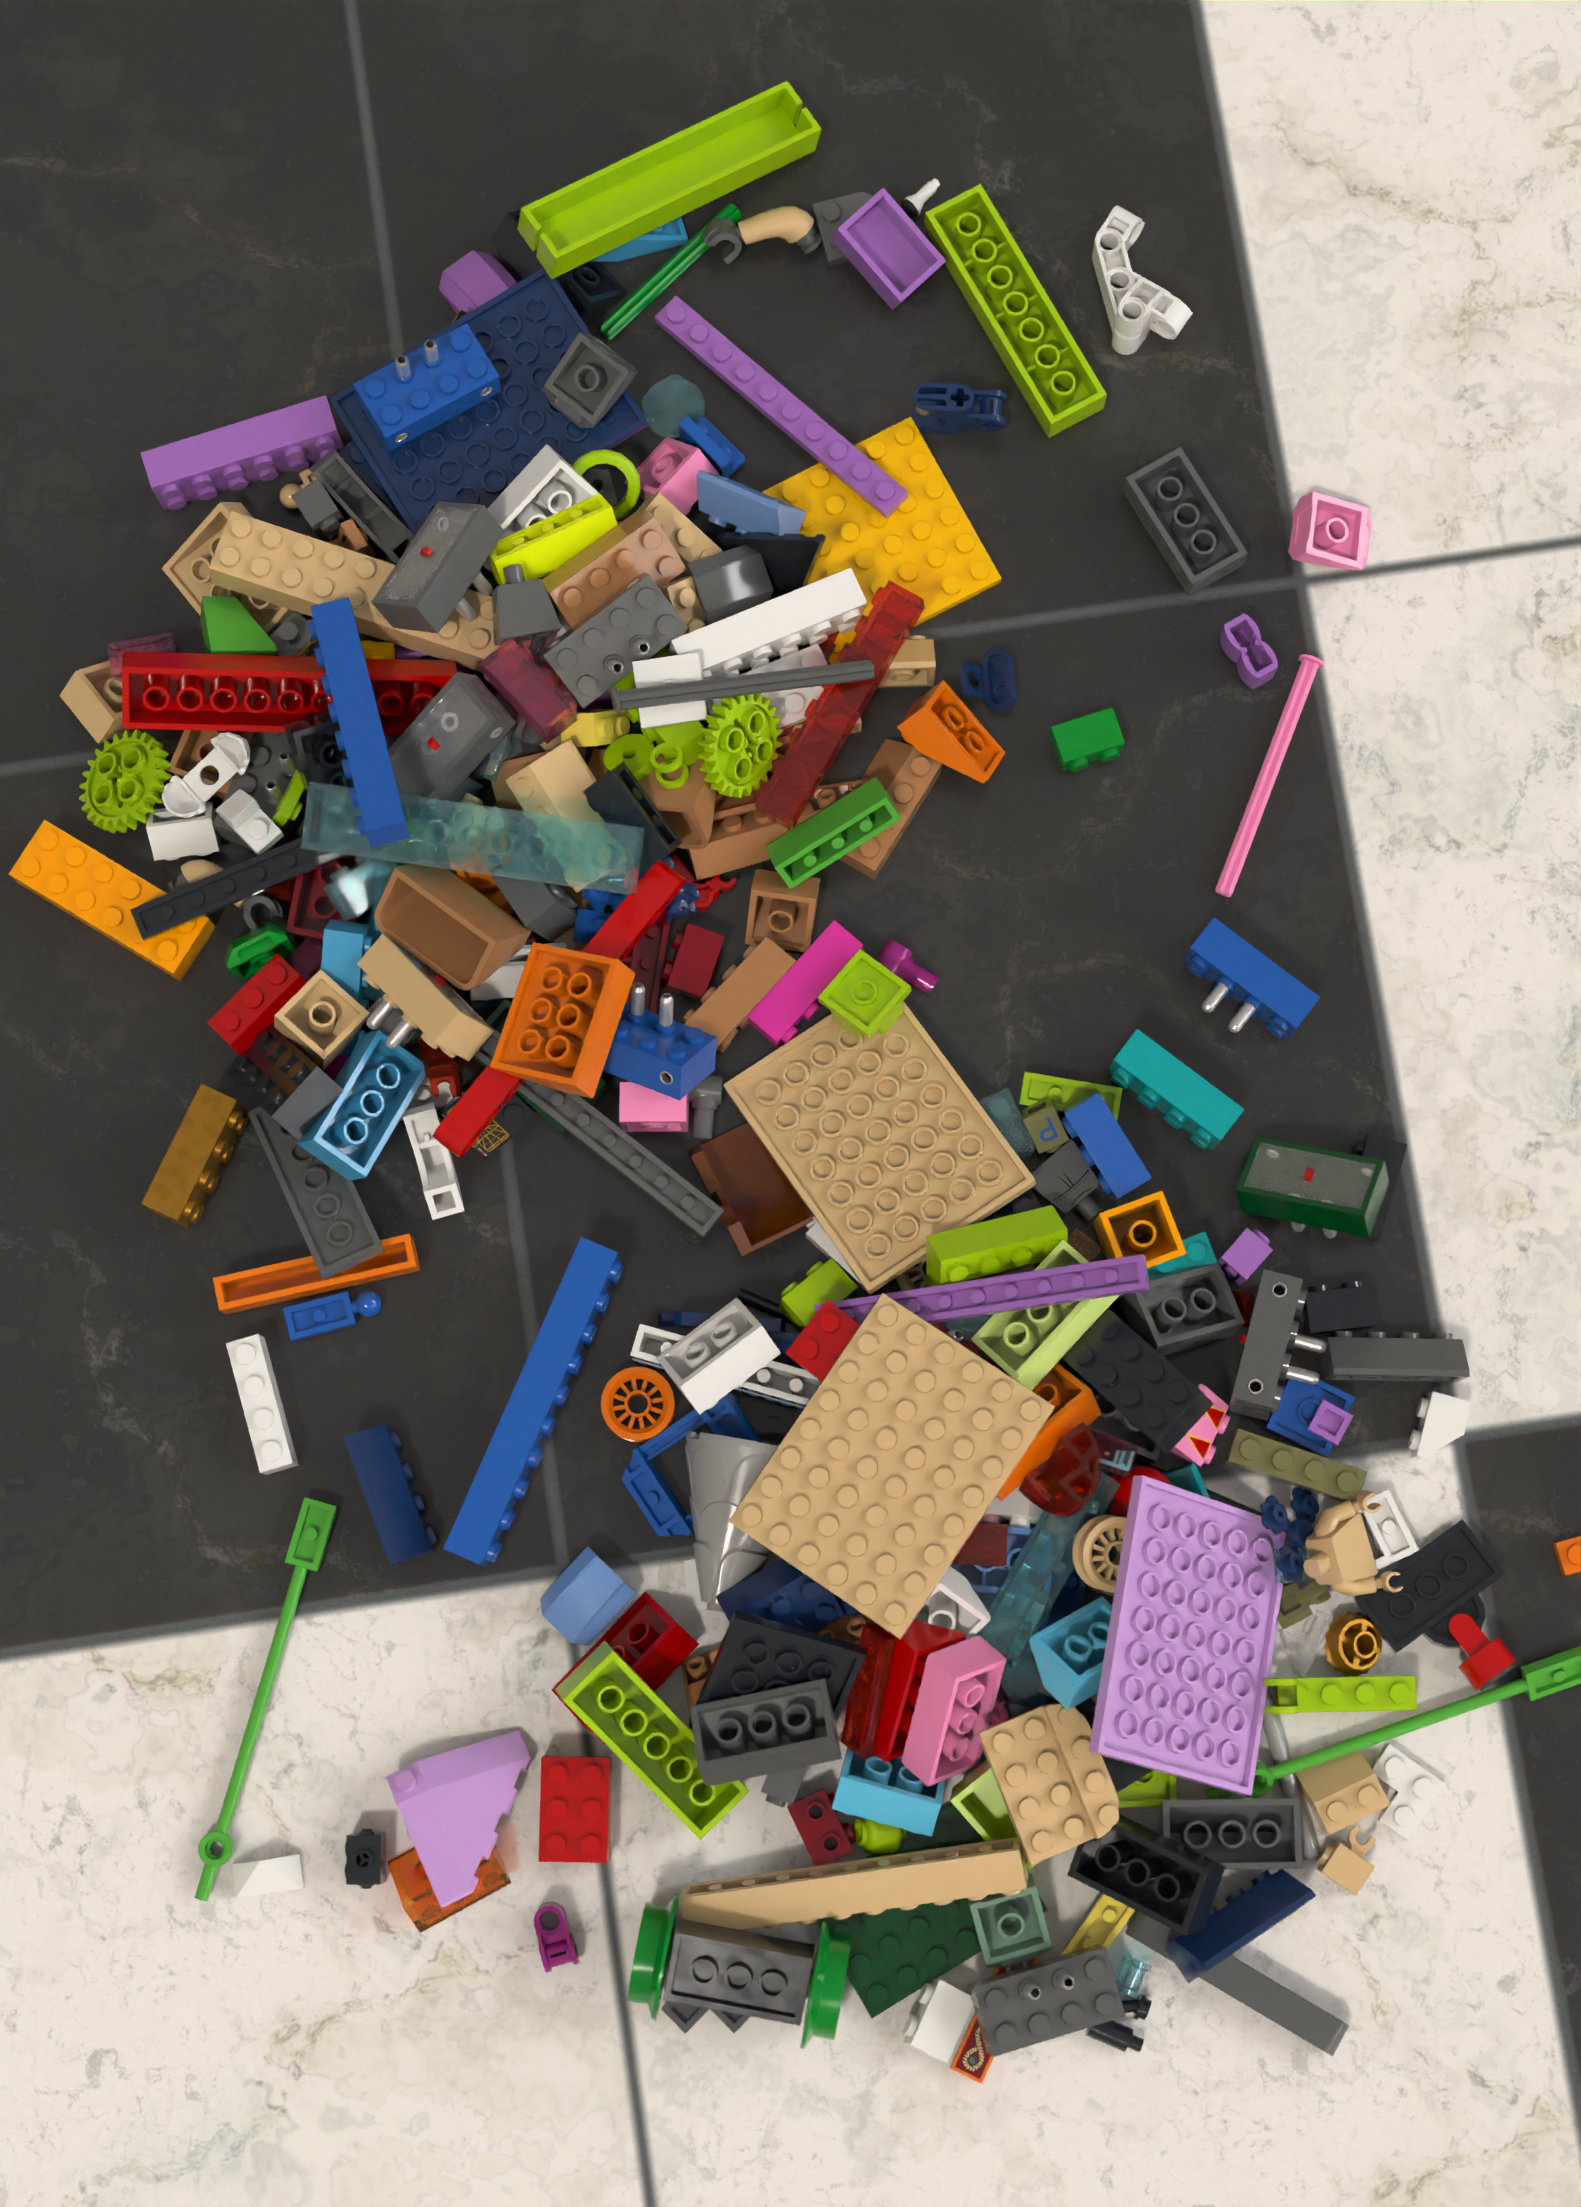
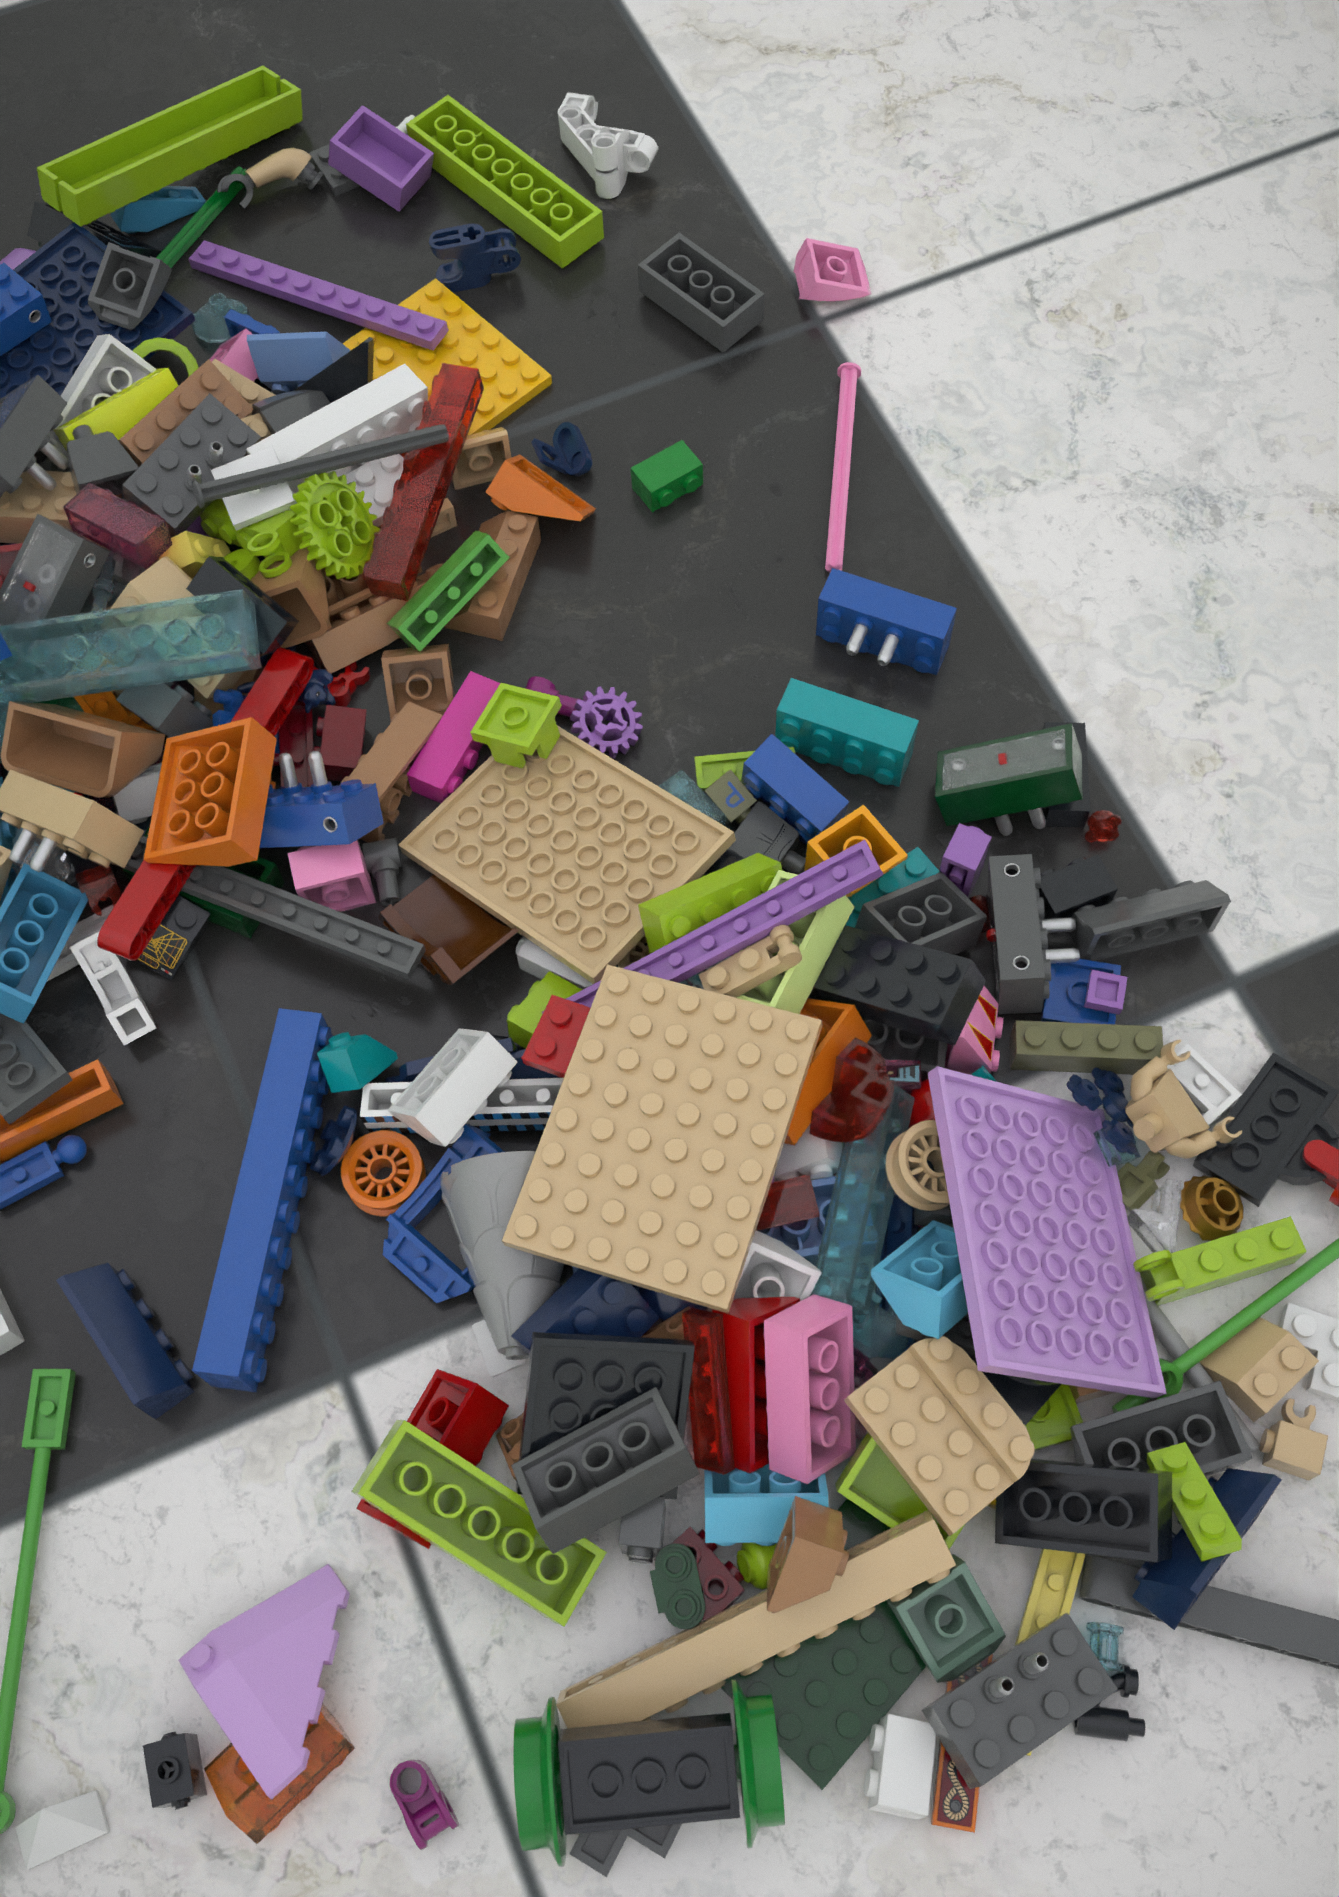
camera: 15 degrees left, 15 degrees down
(575, 1809) = (411, 1636): red brick -> none
(585, 1598) = (372, 1391): medium blue slope -> none
(603, 1366) = (338, 1139): none -> dark blue dish
(635, 1302) = (353, 1061): none -> teal slope
(800, 1835) = (678, 1586): none -> dark green bracket
(909, 1846) = (806, 1555): none -> medium nougat slope
(961, 999) = (610, 708): none -> medium lavender gear
(1009, 1330) = (753, 964): none -> tan plate
(1236, 1893) = (1196, 1503): none -> lime plate
(1243, 645) = (791, 372): medium lavender brick -> none
(1389, 1252) = (1103, 826): none -> clear red plate
(1441, 1422) = (1214, 967): white slope -> none

